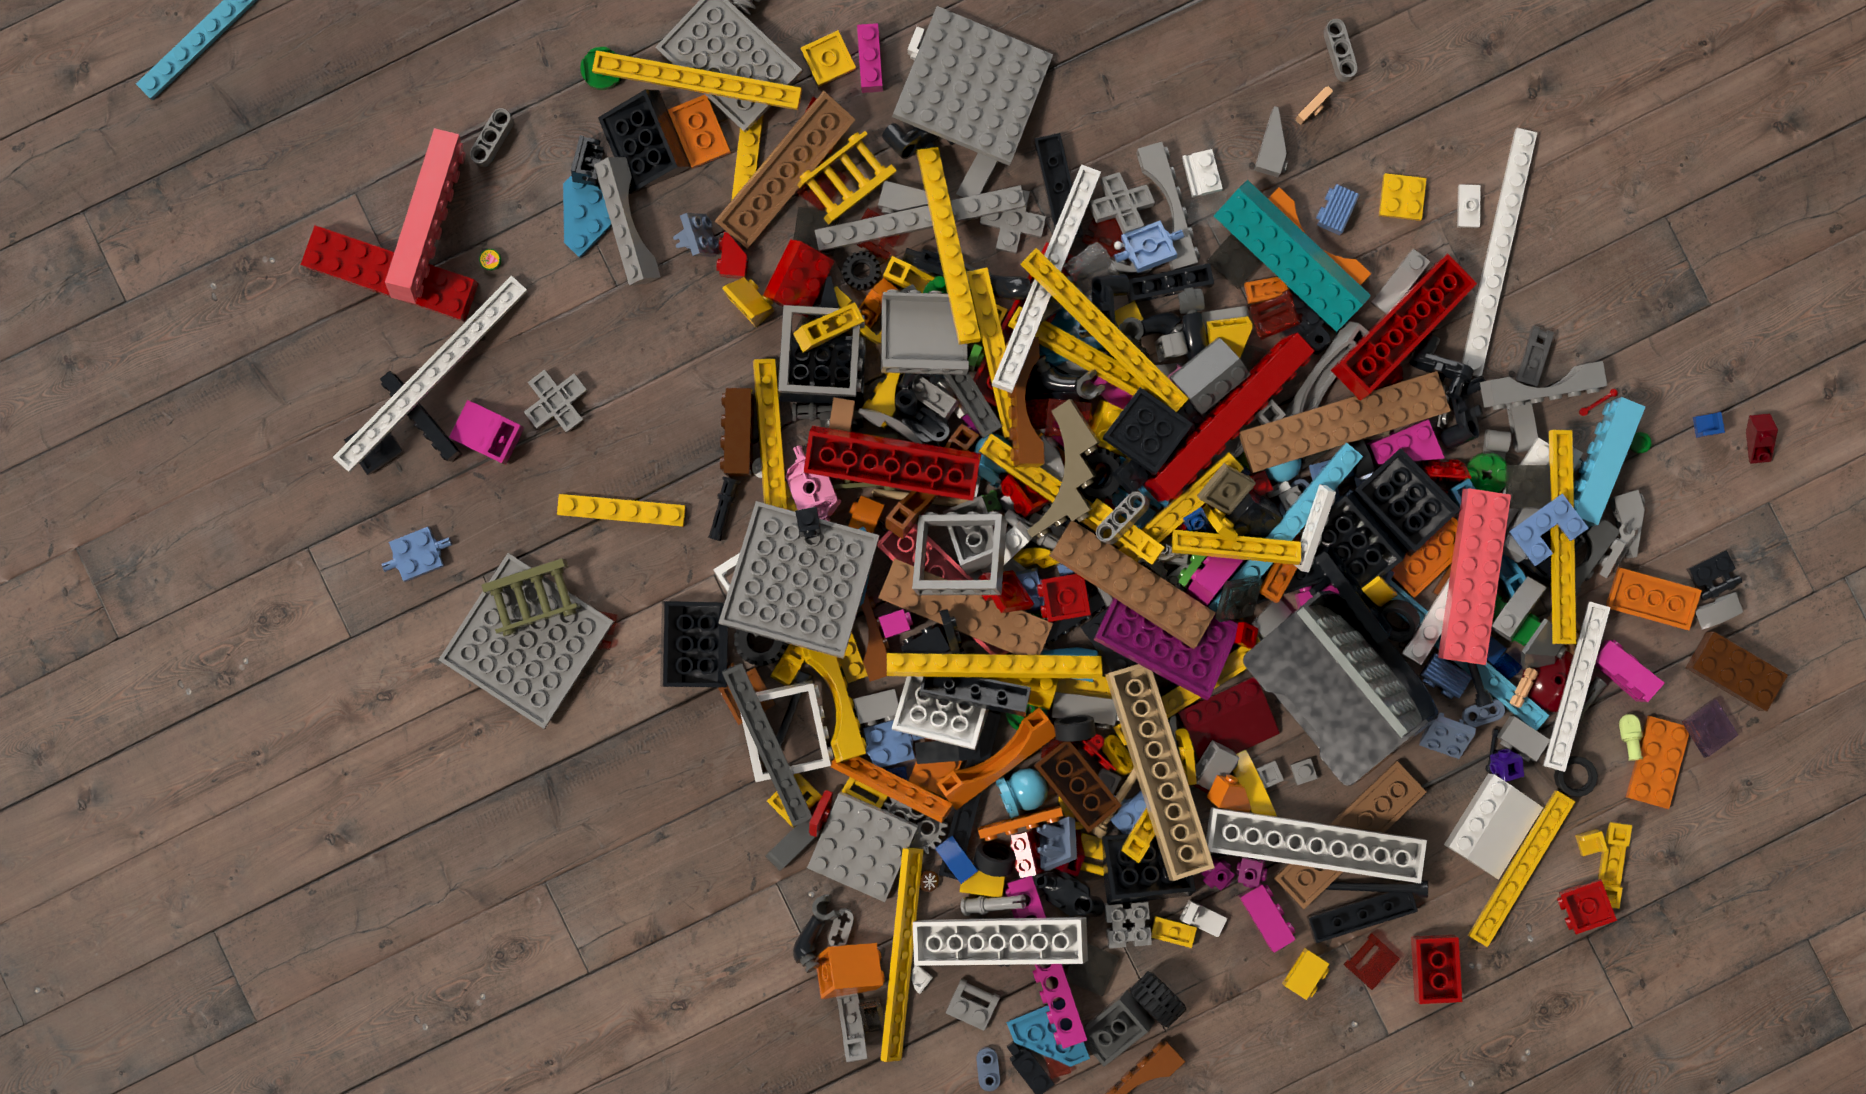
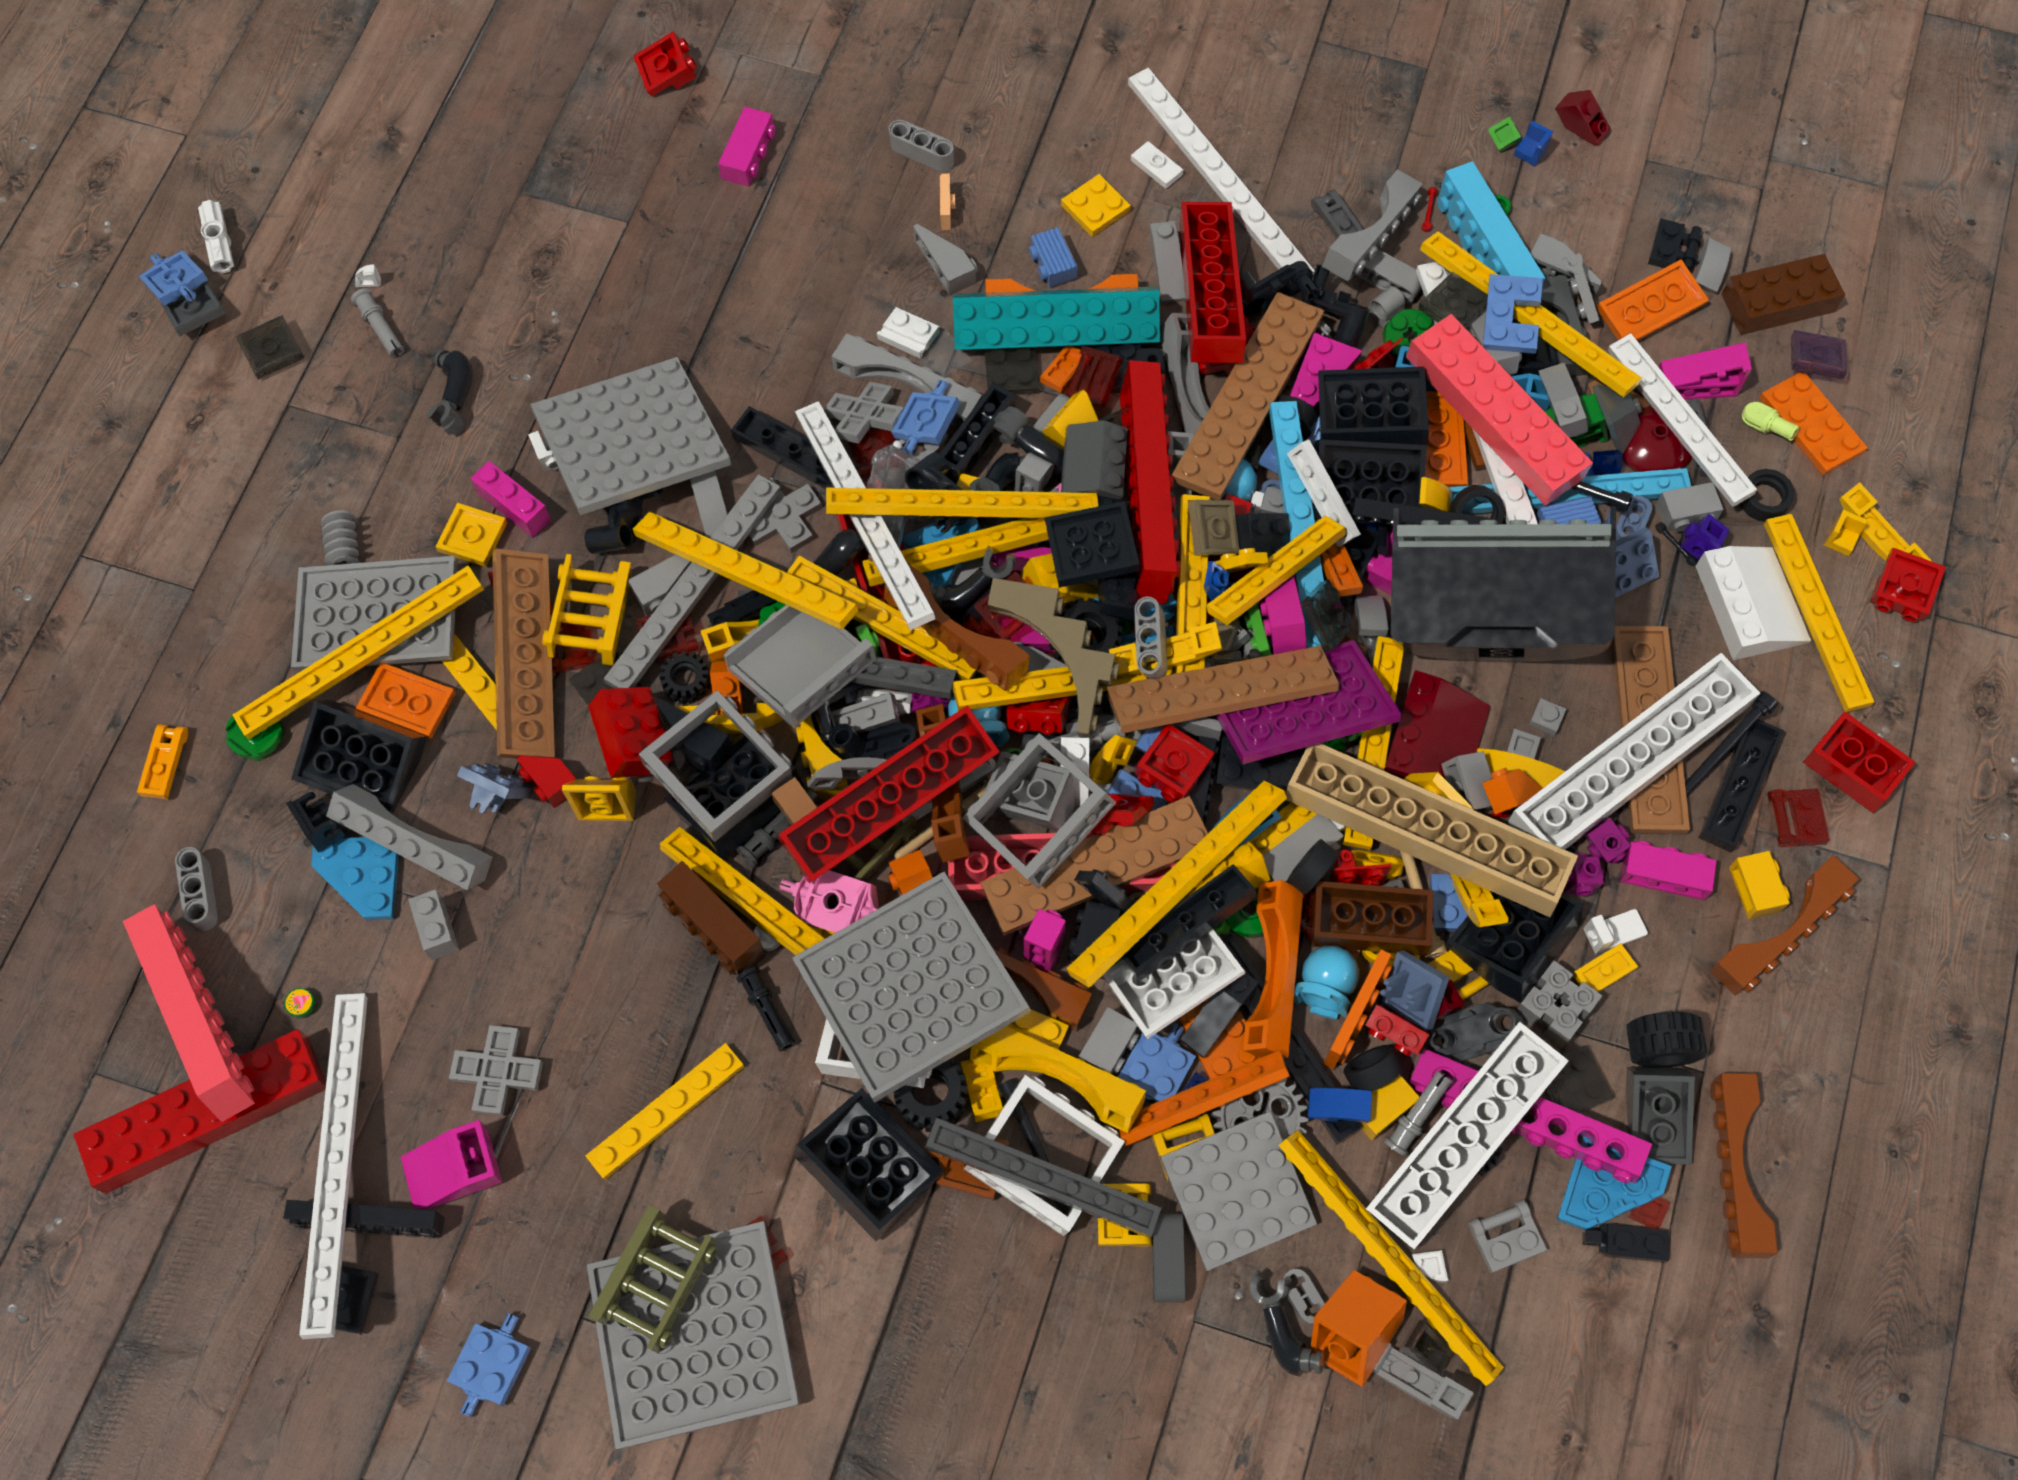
camera: 45 degrees left, 20 degrees down
(538, 37) = (162, 761): none -> light orange plate
(595, 286) = (433, 924): none -> light grey brick
(808, 522) = (864, 924): black bracket -> none
(821, 813) = (1165, 1196): red plate -> none
(828, 327) = (701, 730): yellow slope -> none
(928, 881) = (1336, 1159): reddish brown tile -> none
(988, 1069) = (1592, 1286): sand blue plate -> none
(1246, 635) = (1368, 640): red plate -> none
(1337, 1011) = (1822, 889): none -> dark orange arch
(1523, 687) = (1640, 464): light nougat axle -> none
(1699, 400) = (1505, 134): none -> bright green plate

